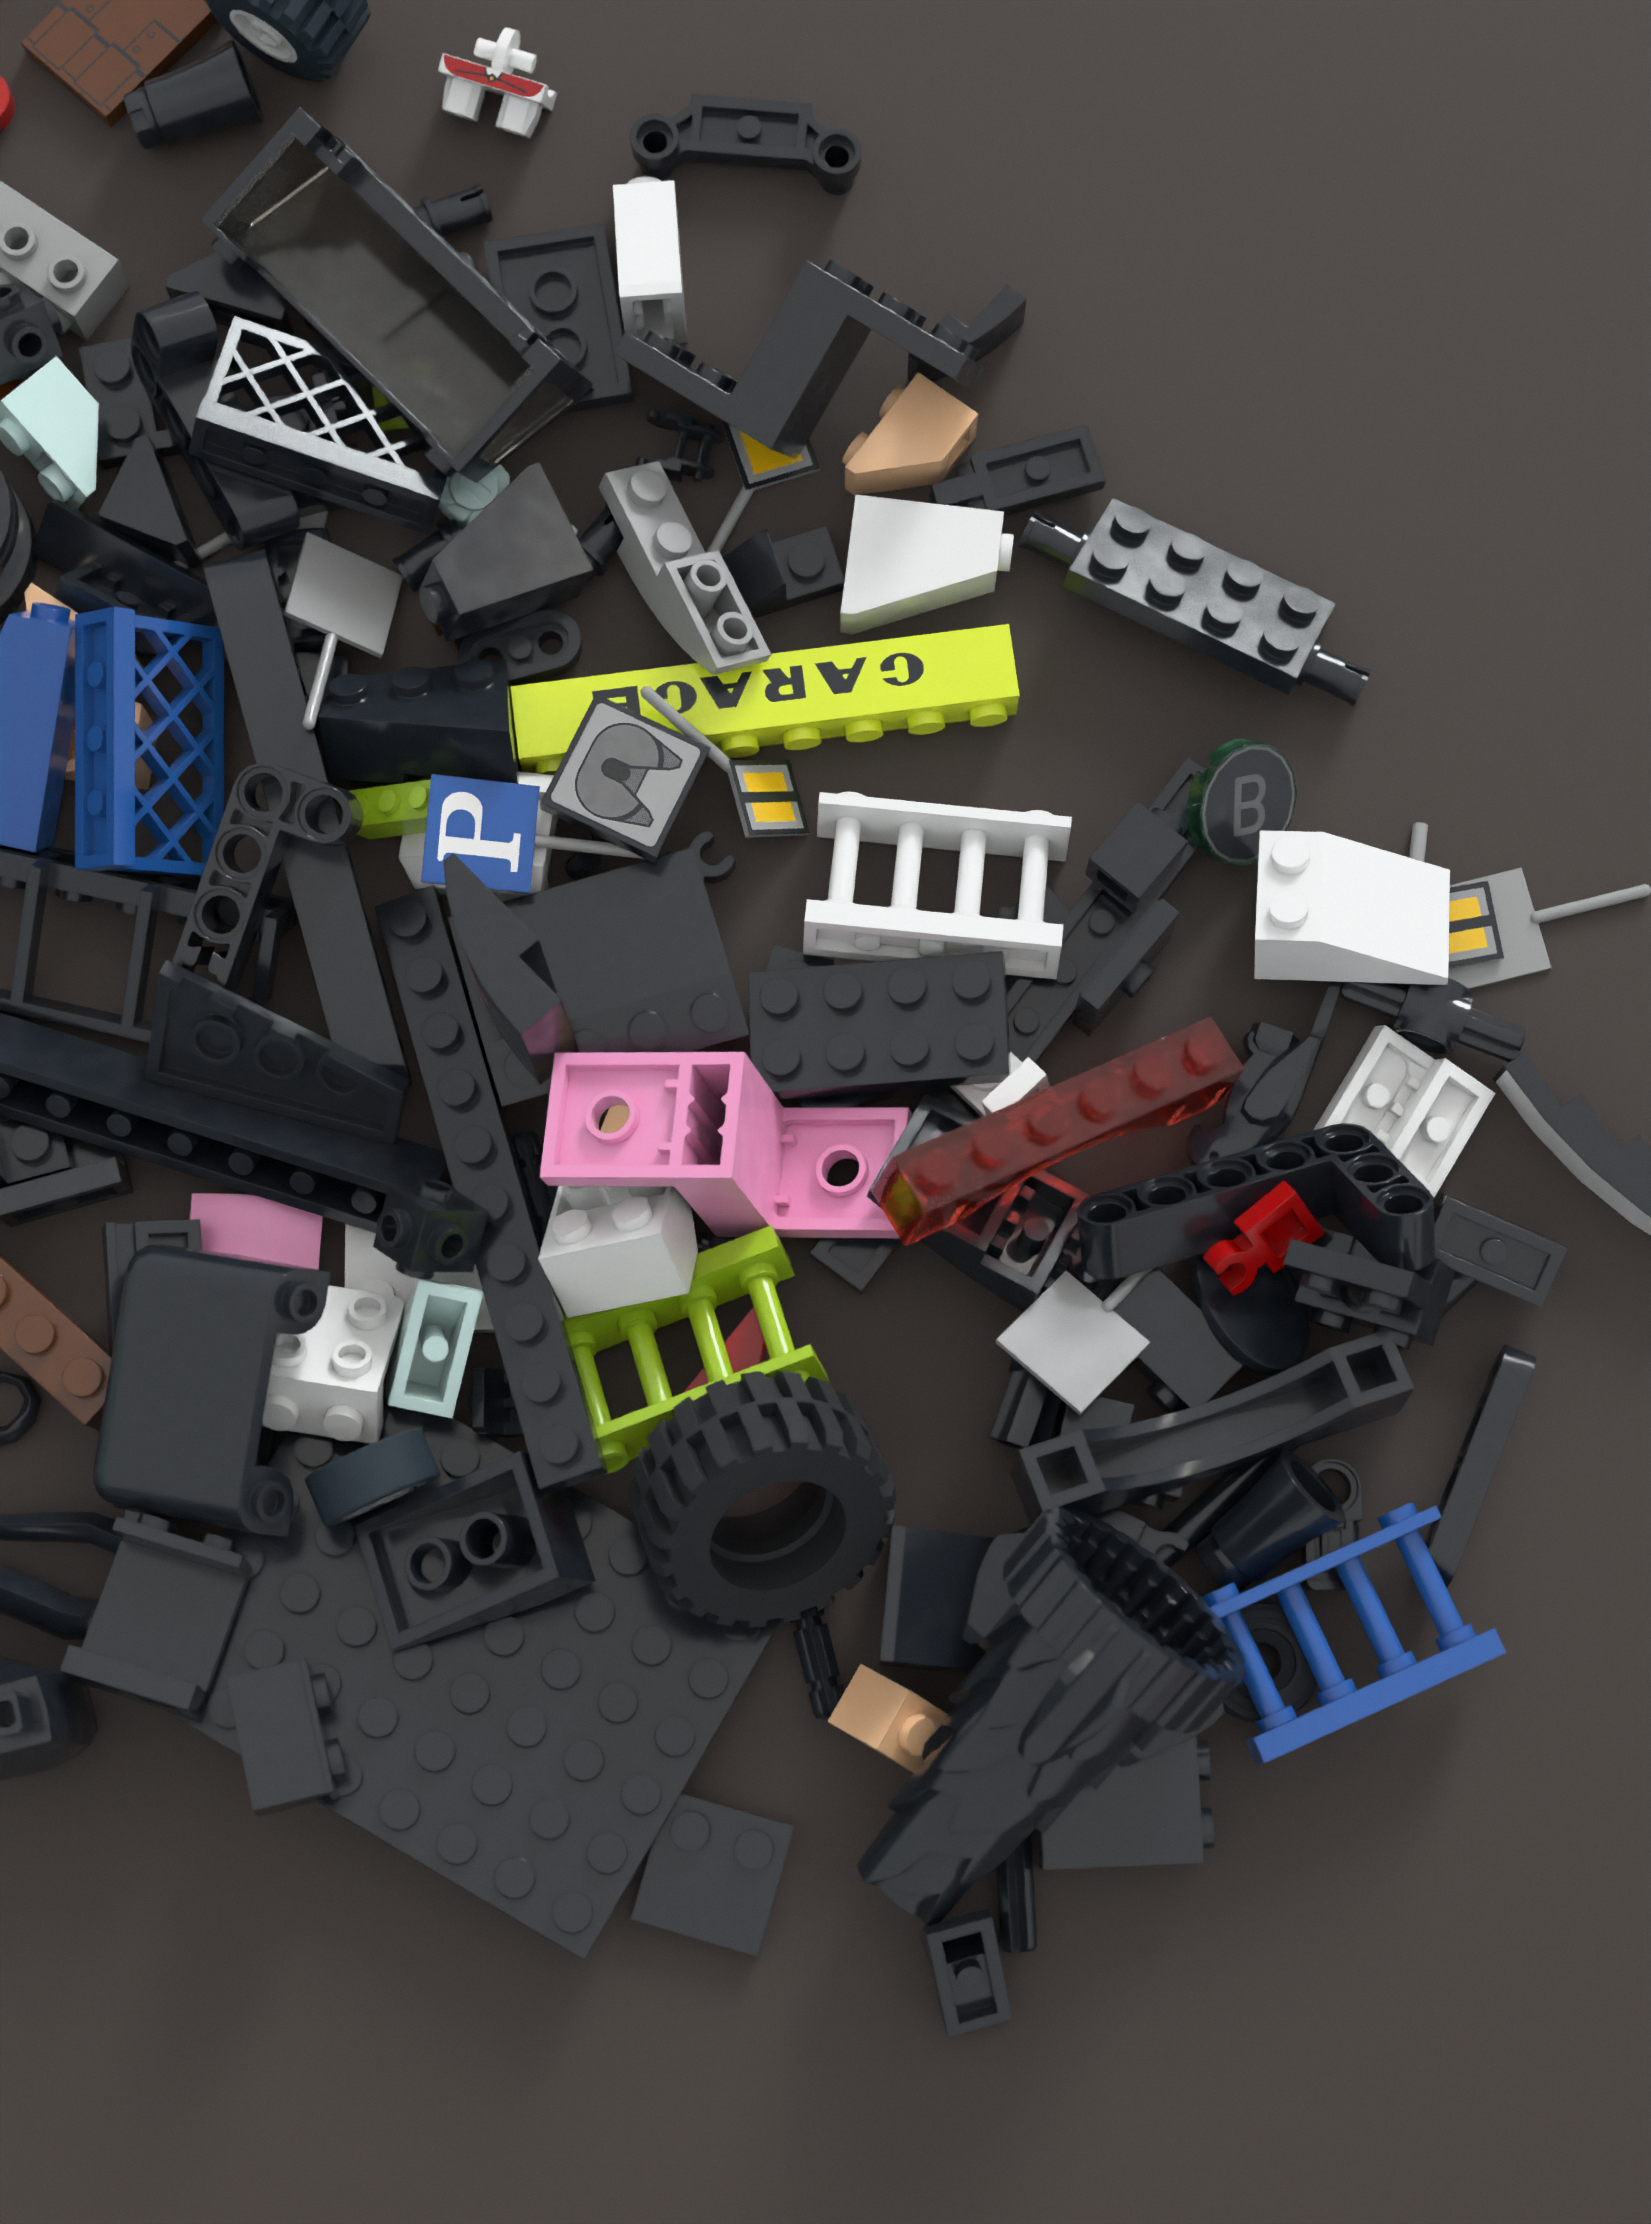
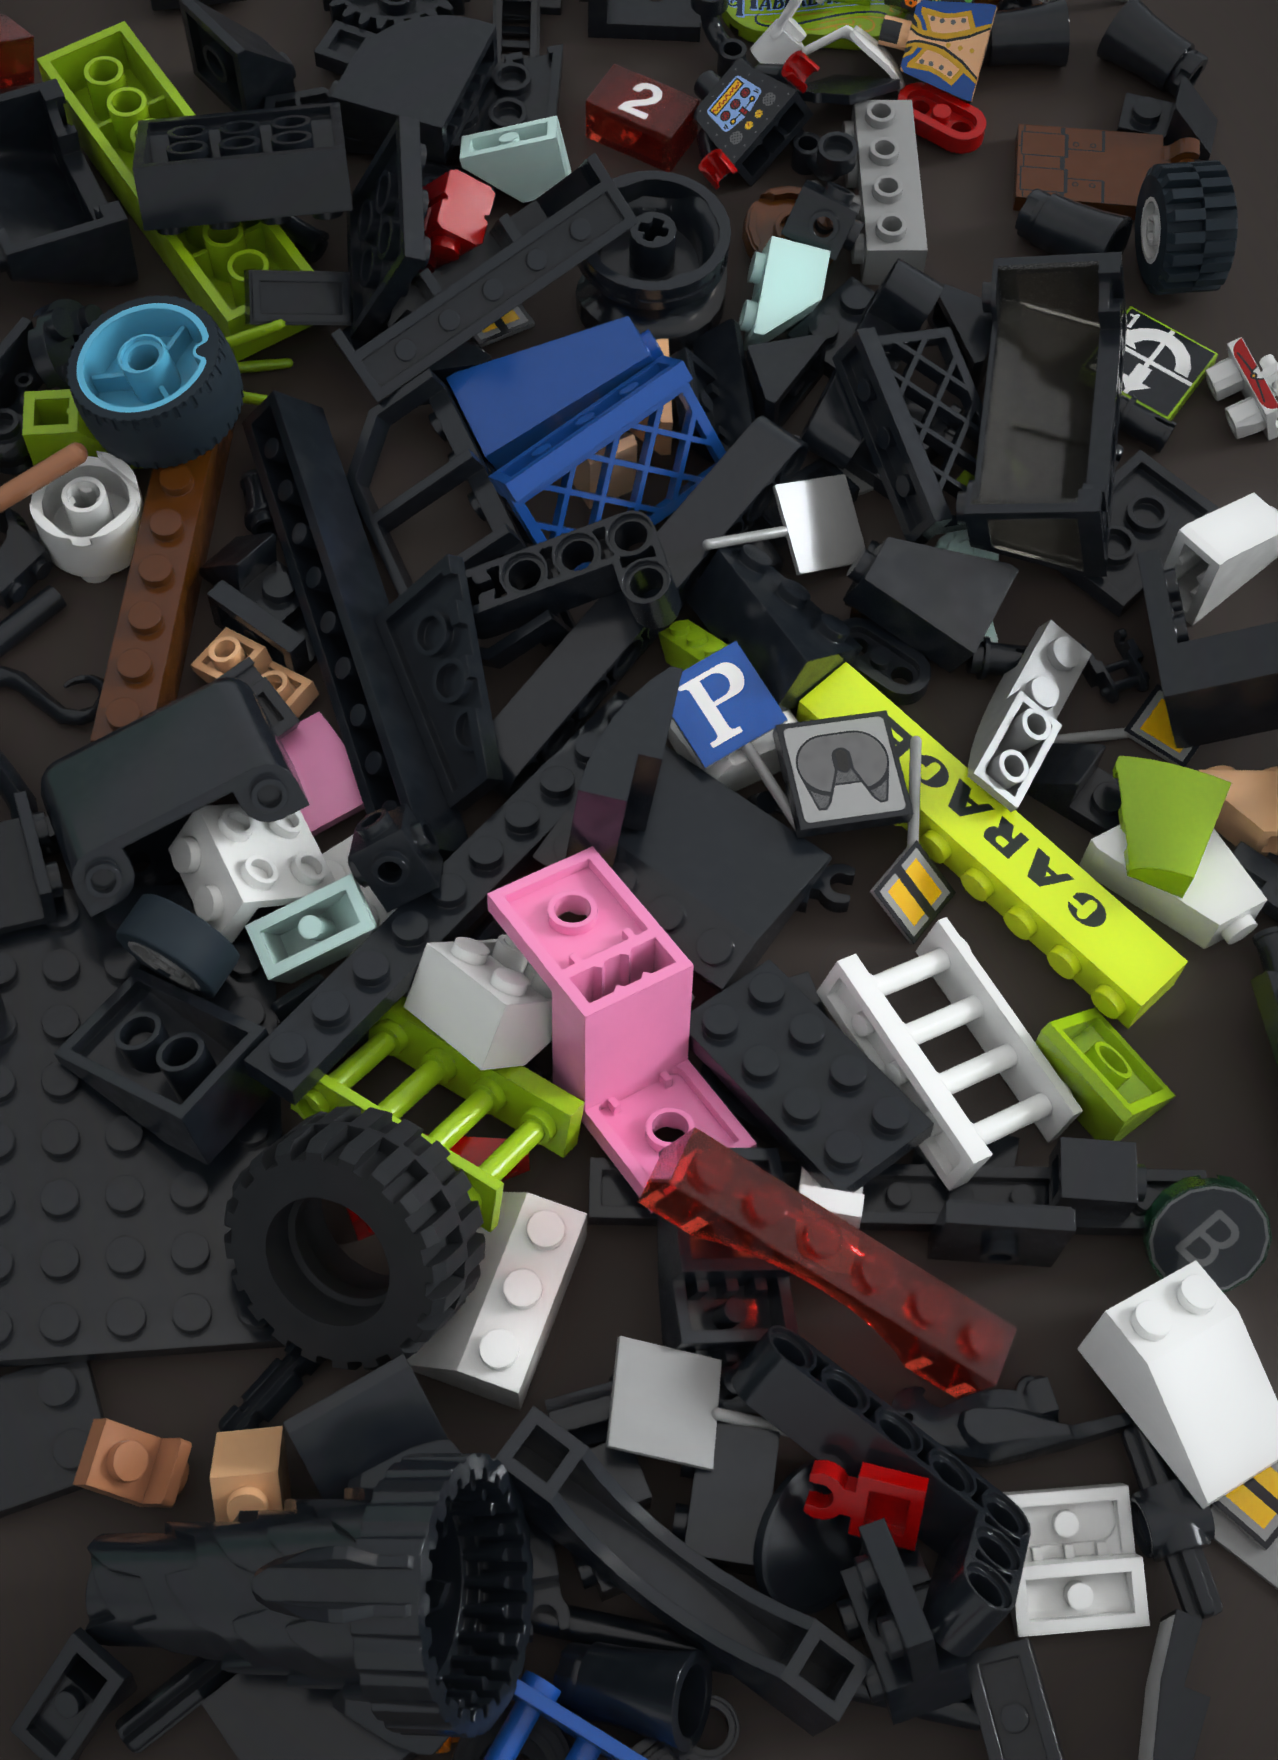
camera: 50 degrees right, 15 degrees down
(73, 1235) = (232, 648): none -> light nougat slope
(402, 142) = (1161, 364): none -> tile
(805, 1806) = (133, 1465): none -> nougat bracket
(876, 536) = (1166, 819): none -> lime slope
(894, 1396) = (507, 1318): none -> white slope
(1046, 770) = (1103, 1074): none -> lime slope

